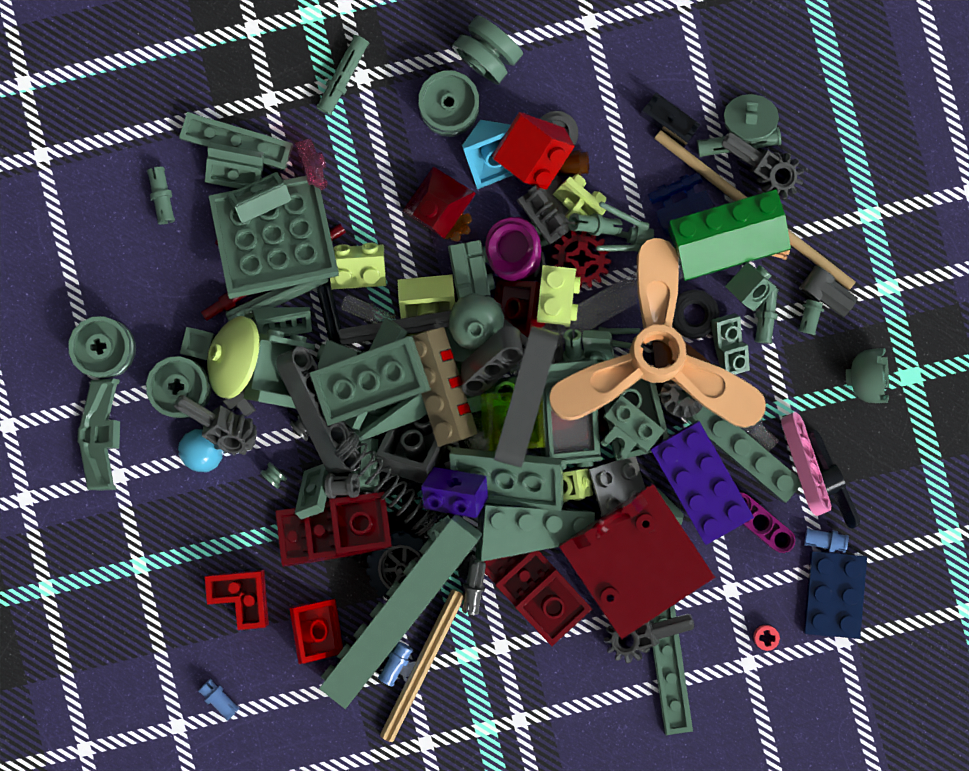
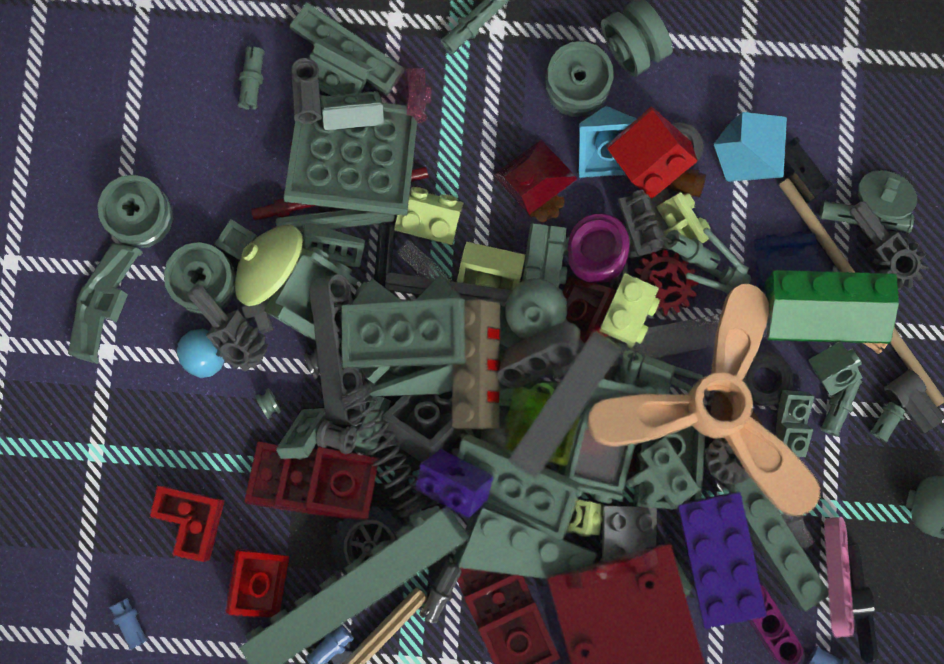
camera: 15 degrees right, 5 degrees down
(214, 195) = (305, 91): none -> dark grey piece
(620, 115) = (752, 147): none -> medium azure slope

